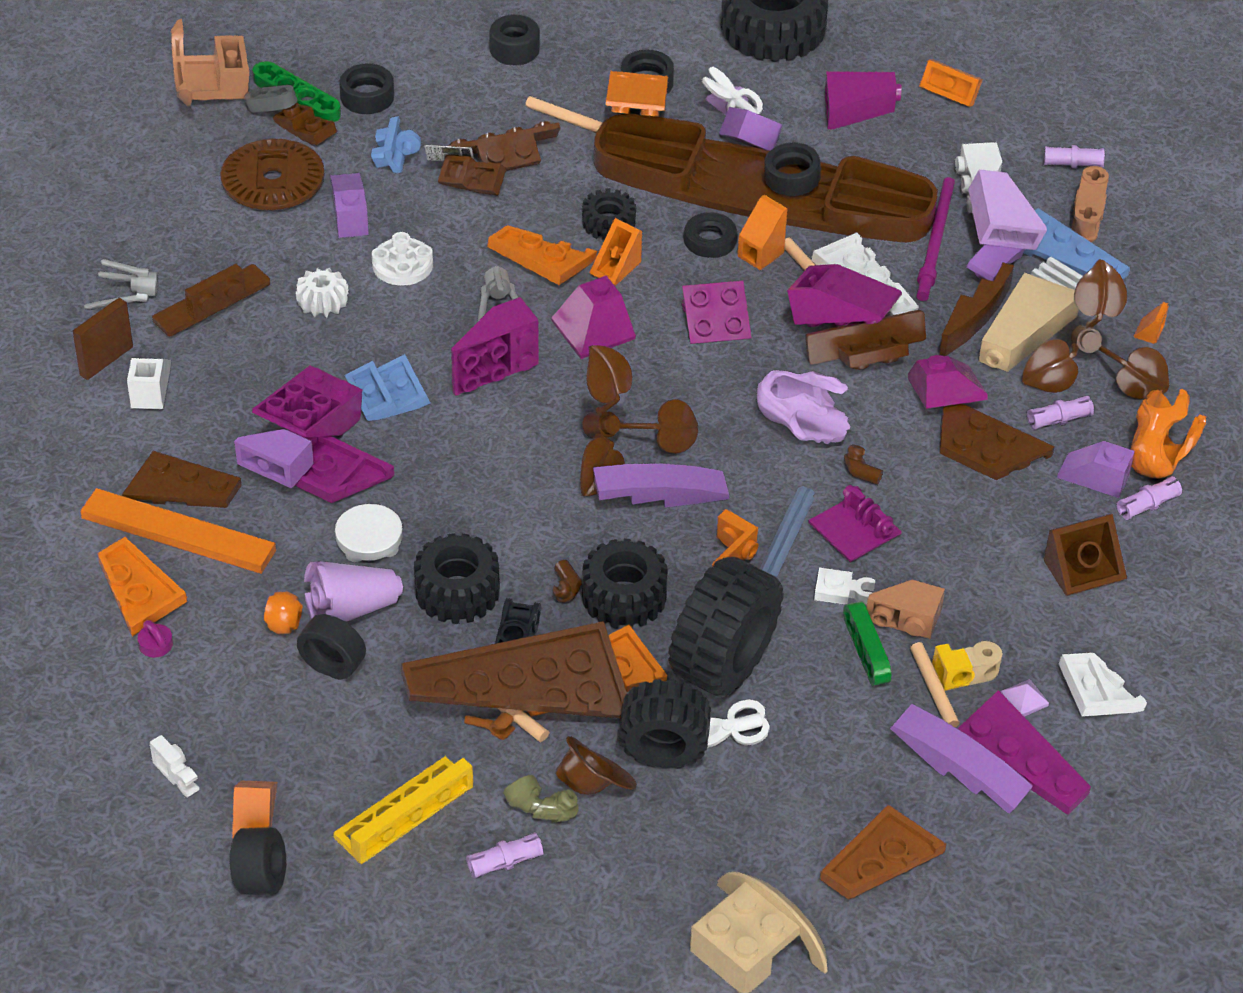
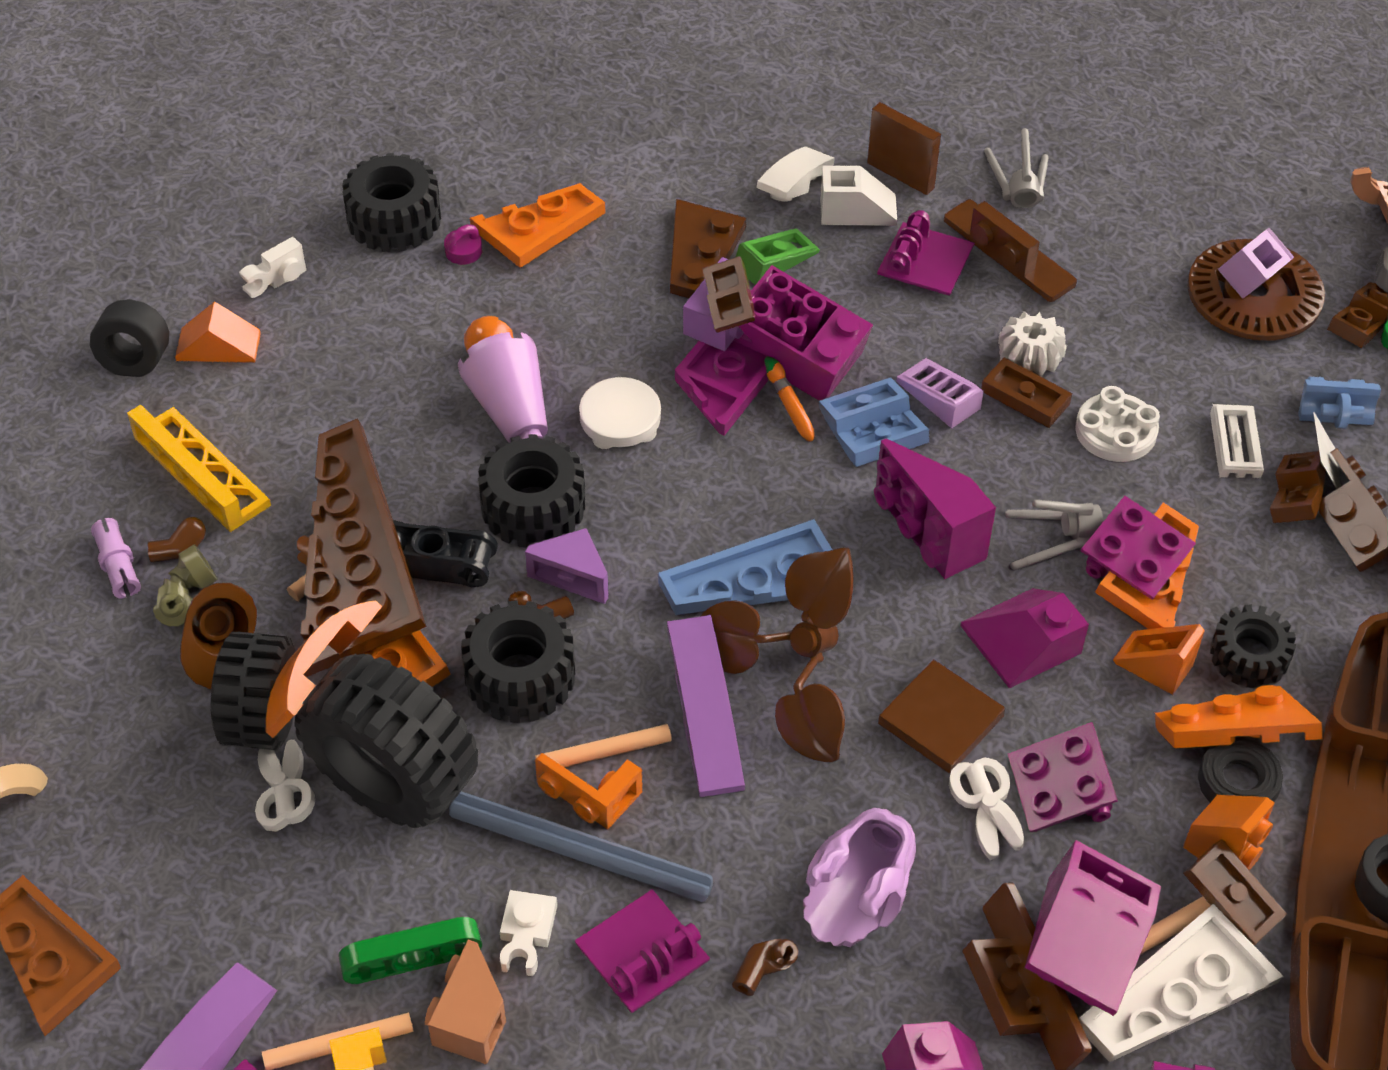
camera: 90 degrees right, 5 degrees up
(105, 415) = (793, 173): none -> white slope
(108, 700) = (391, 202): none -> black tyre
(178, 530) = (625, 254): orange tile -> none
(196, 440) = (775, 251): none -> bright green slope
(214, 346) = (925, 256): none -> magenta hinge
(268, 154) = (1255, 263): none -> lavender slope
(292, 430) = (729, 294): none -> reddish brown slope
(338, 634) = (420, 375): black tyre -> none
(349, 205) = (1213, 360): medium lavender slope -> none
(367, 430) = (777, 376): none -> orange piece
(368, 301) = (1026, 392): none -> reddish brown plate
(371, 333) = (949, 410): none -> lavender slope
(422, 202) = (1238, 465): none -> white tile
(490, 811) = (188, 532): none -> reddish brown arm
(527, 256) = (1136, 548): none -> magenta hinge
(528, 556) = (569, 564): none -> medium lavender slope
(535, 453) = (742, 573): none -> medium blue wing
(665, 368) = (941, 716): none -> reddish brown tile
(667, 661) = (291, 685): none -> slope
(671, 225) = (1252, 714): none -> orange wing
(689, 543) = (611, 746): none -> light nougat bar
(740, 352) = (992, 810): none -> white piece
(804, 240) = (1235, 892): none -> plate

